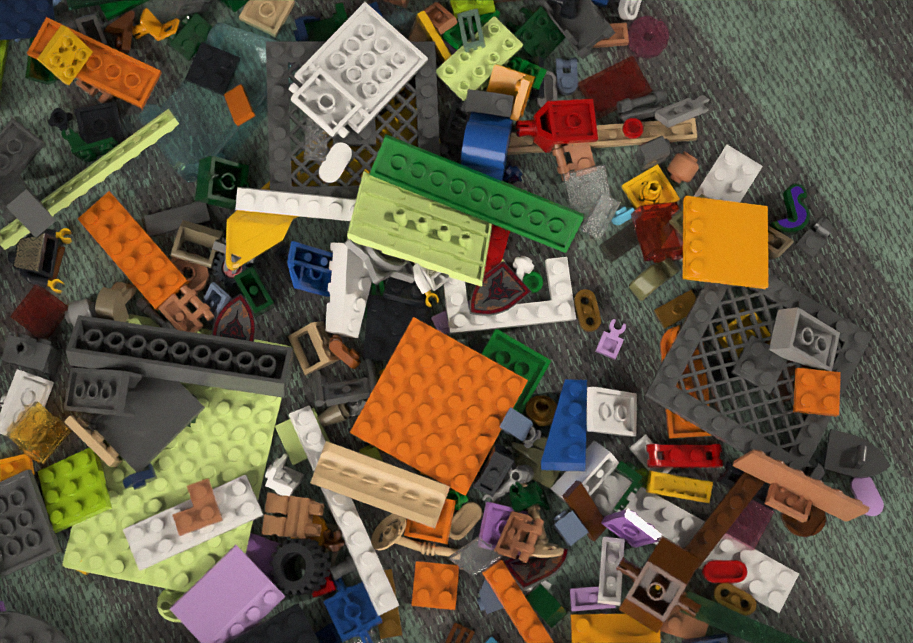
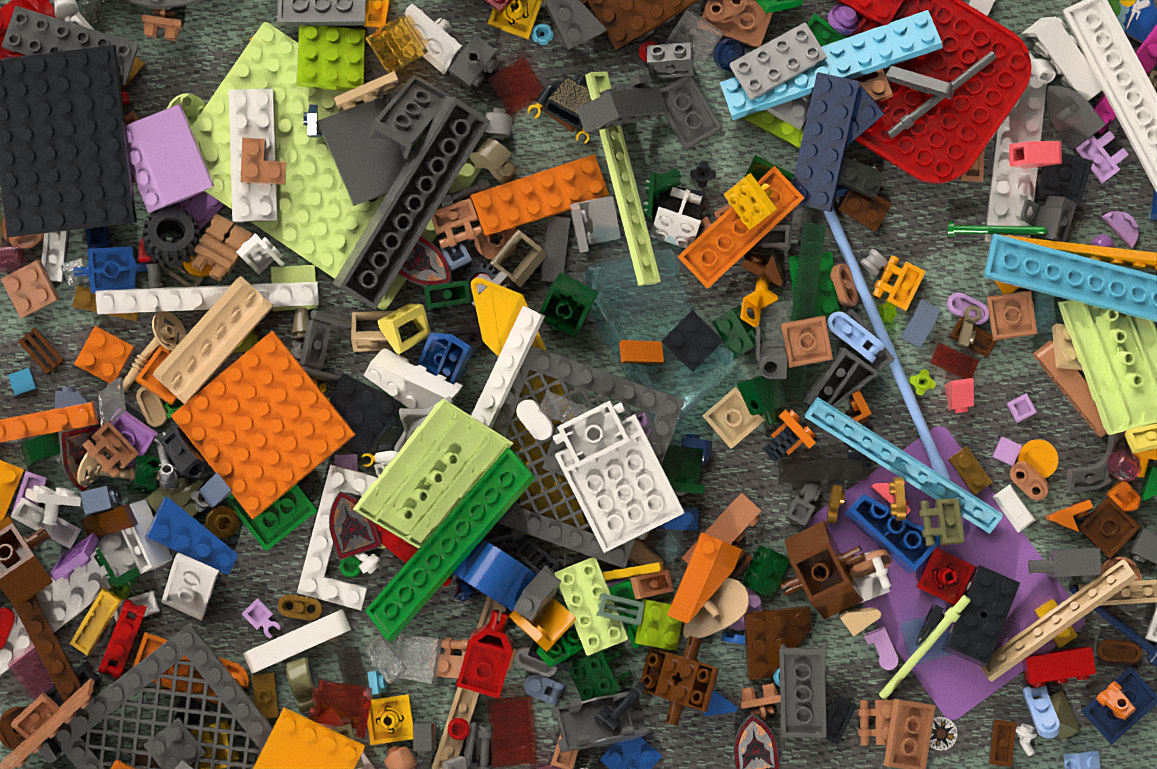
camera: 115 degrees right, 5 degrees up
(115, 119) = (674, 226): none -> white plate
(139, 192) = (595, 222): none -> light grey bracket
(293, 326) = (391, 322): none -> light yellow tile
(333, 543) = (180, 275): reddish brown plate -> none
(348, 356) = (354, 357): dark orange plate -> none
(588, 571) = (52, 500): none -> white plate
(618, 300) = (297, 641): none -> white beam

